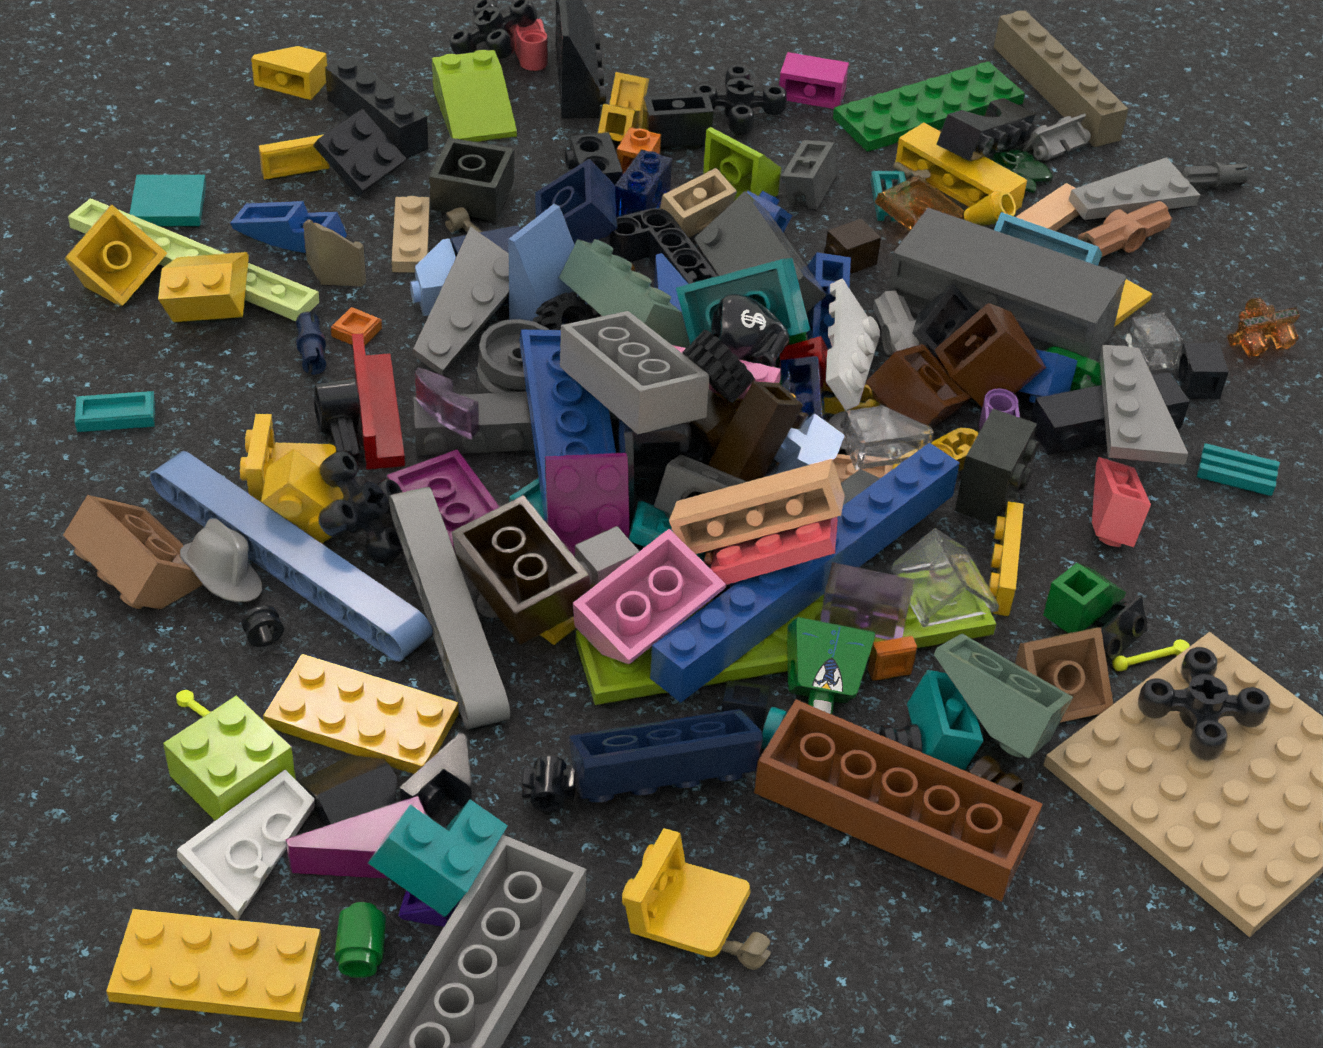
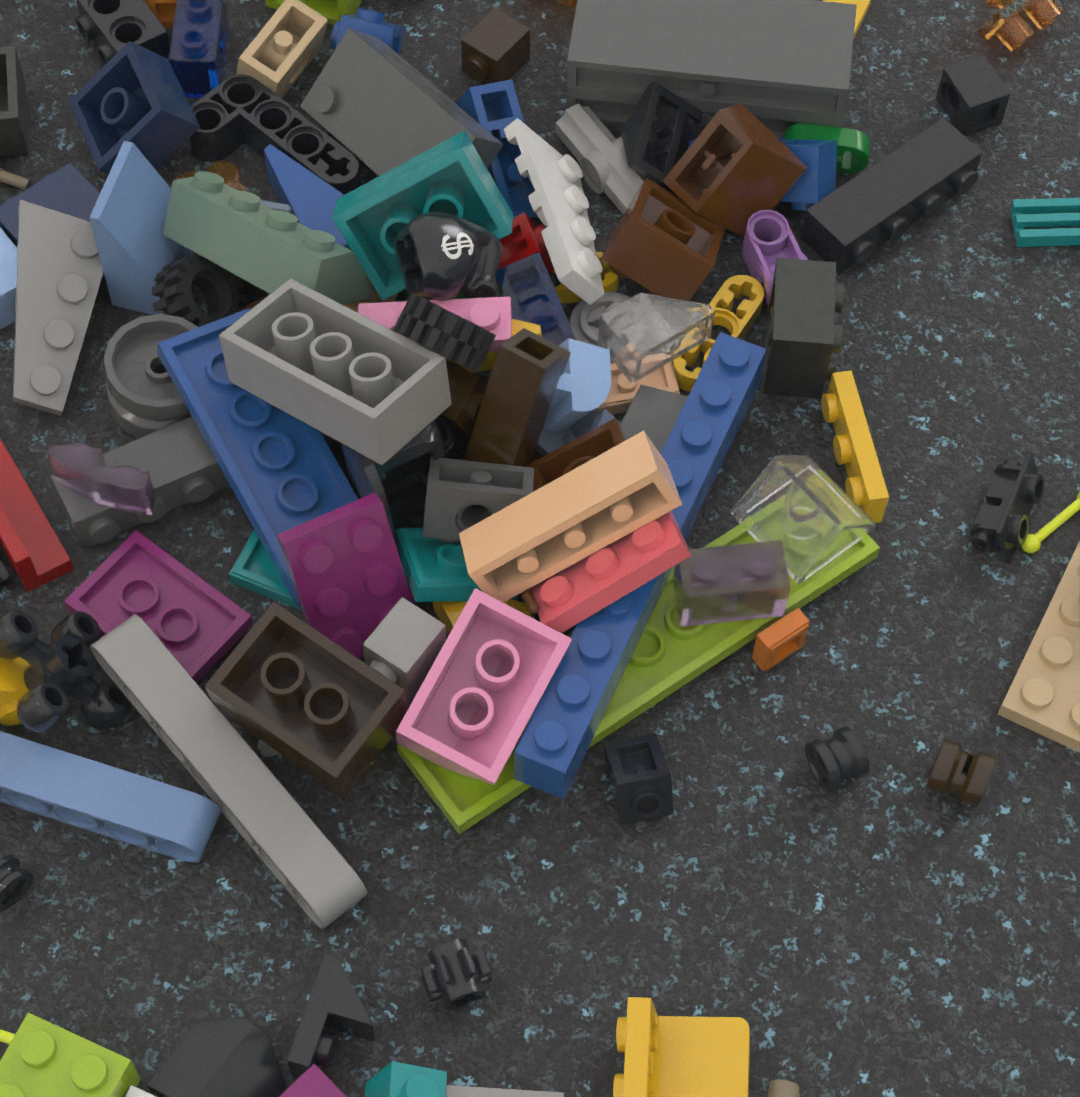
camera: 20 degrees left, 15 degrees up
(361, 714) = (182, 959): plate -> none
(664, 754) = (578, 882): dark blue slope -> none
(771, 725) = (686, 792): teal tile -> none
(826, 661) = (714, 685): green torso -> none
(898, 799) = (868, 838): dark orange brick -> none
(944, 720) = (881, 709): teal brick -> none
(1005, 697) = (939, 655): sand green slope -> none
(1075, 666) = (983, 597): medium nougat slope -> none
(1080, 598) = (961, 476): green slope -> none
(1118, 503) = (951, 321): coral slope -> none
(1135, 411) = (929, 192): light grey wing -> none
(1155, 339) = (902, 72): clear brick -> none

